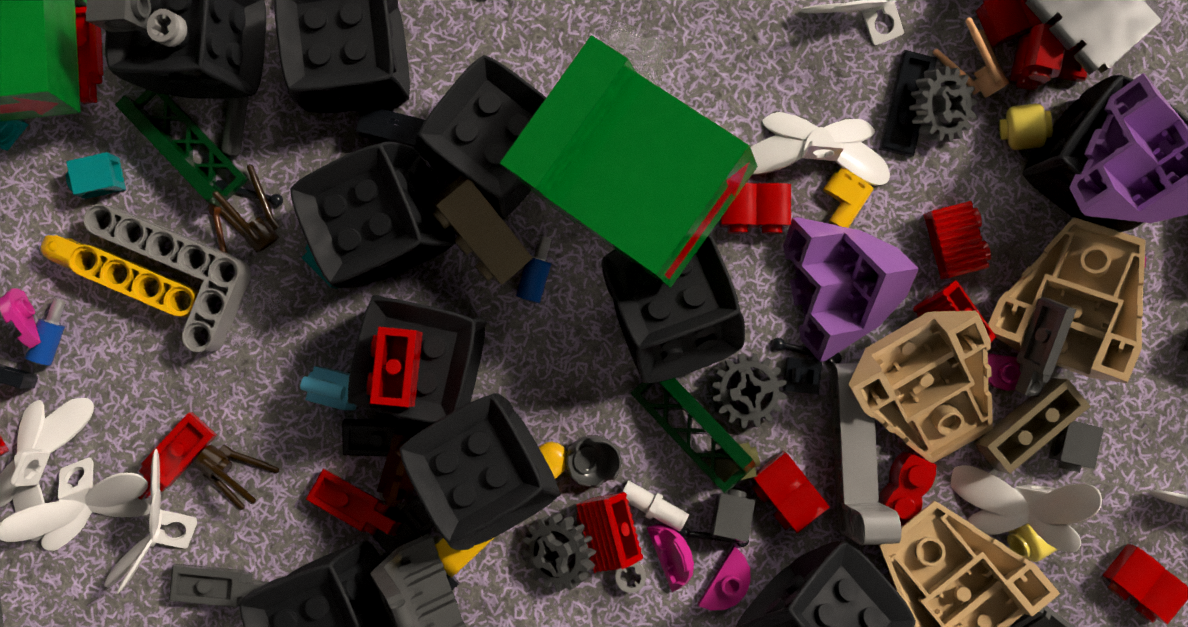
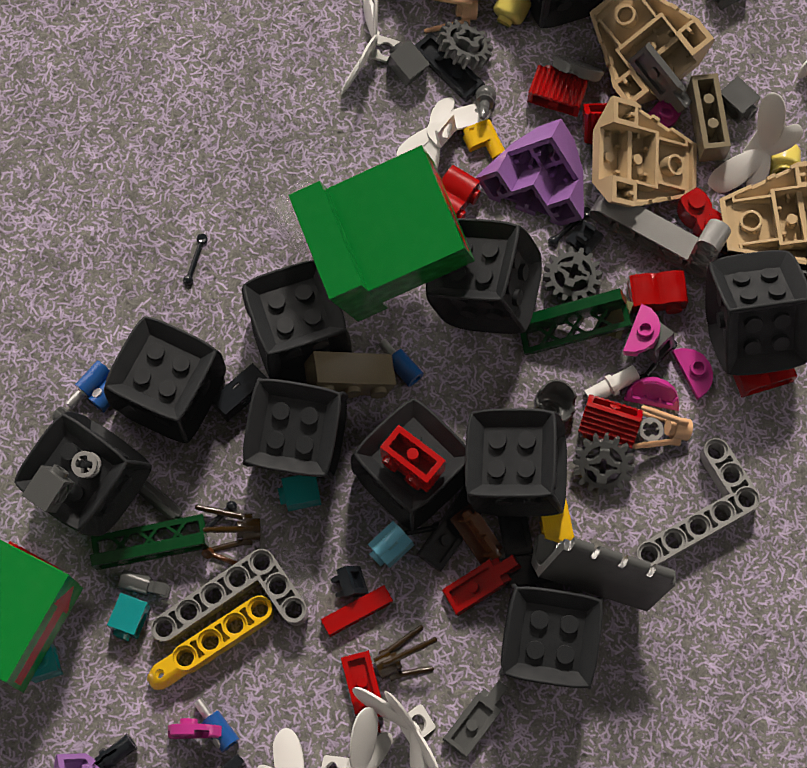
camera: 60 degrees left, 15 degrees down
(138, 168) = (143, 584): none -> dark grey bar
(248, 397) = (356, 611): none -> red piece
(271, 373) = (351, 581): none -> black tile
(647, 600) = (674, 427): none -> light nougat plant
(727, 510) = (644, 332): none -> dark pink plate
(881, 56) = (407, 62): none -> dark grey brick
(894, 168) = (485, 100): none -> dark grey bar
(999, 249) = (579, 68): none -> dark grey tile

